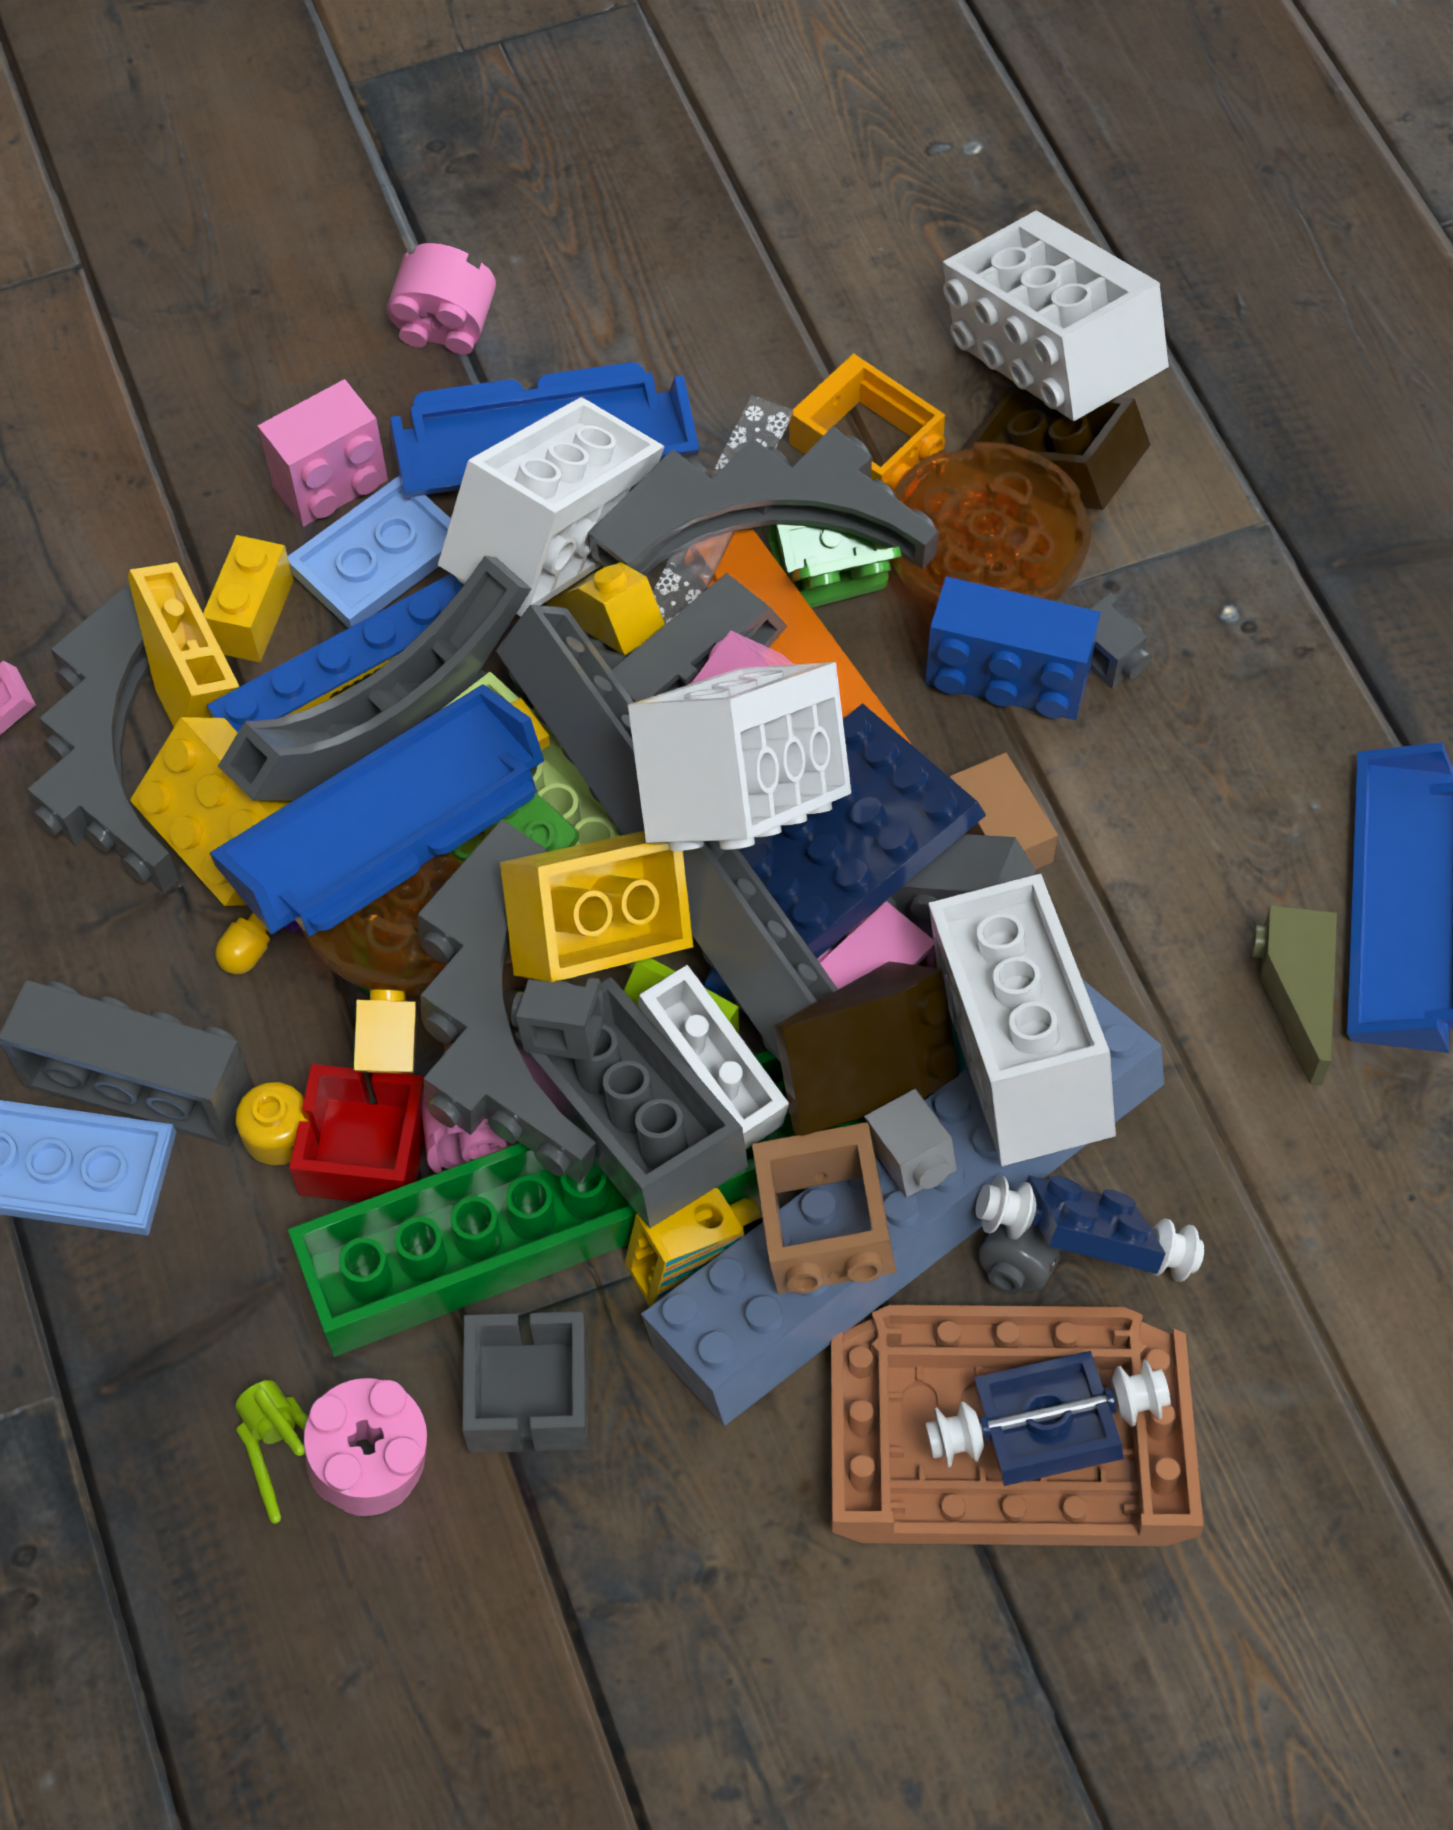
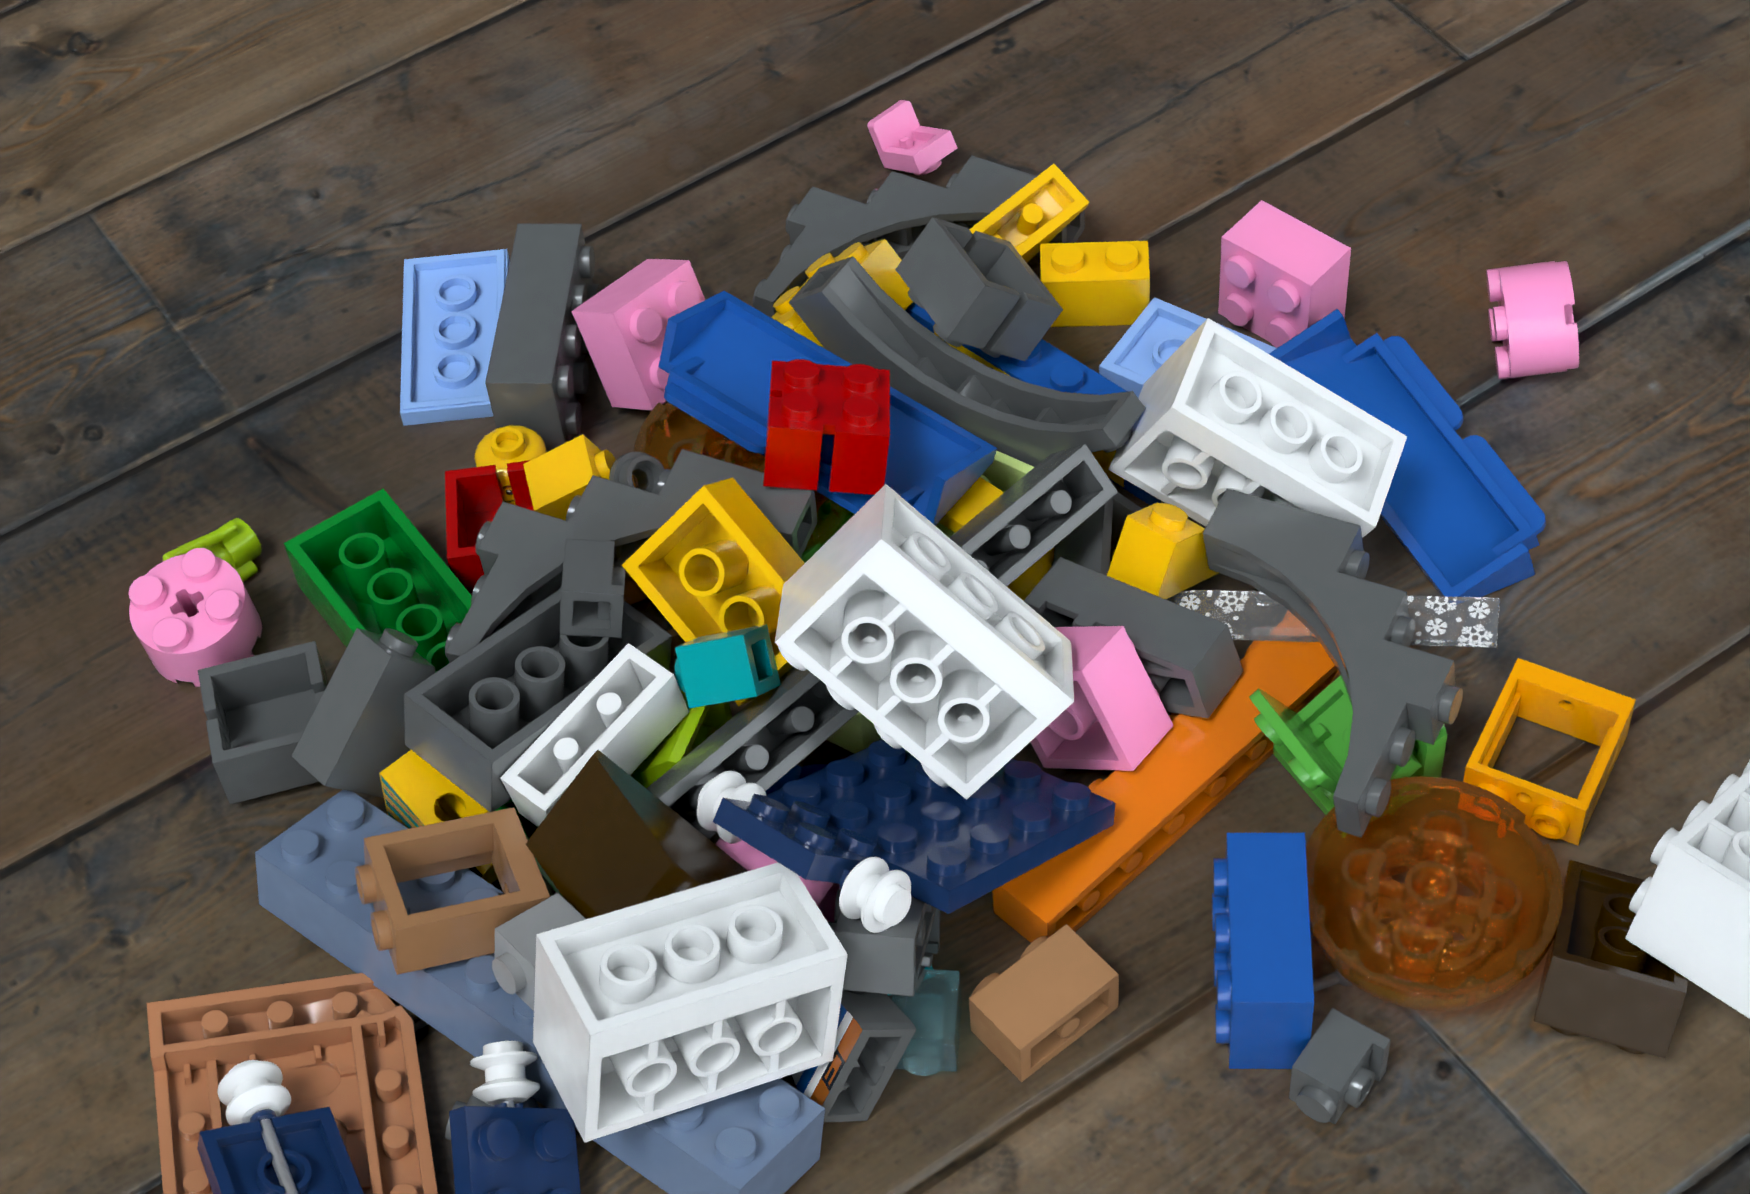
camera: 80 degrees right, 10 degrees down
(177, 958) = (628, 327): none -> bright pink brick
(293, 653) = (978, 290): none -> dark grey piece
(415, 969) = (642, 466): none -> dark grey plate
(460, 777) = (833, 401): none -> red piece
(590, 1264) = (361, 712): none -> dark grey slope
(682, 927) = (726, 666): none -> teal brick
(904, 895) = (808, 847): none -> plate

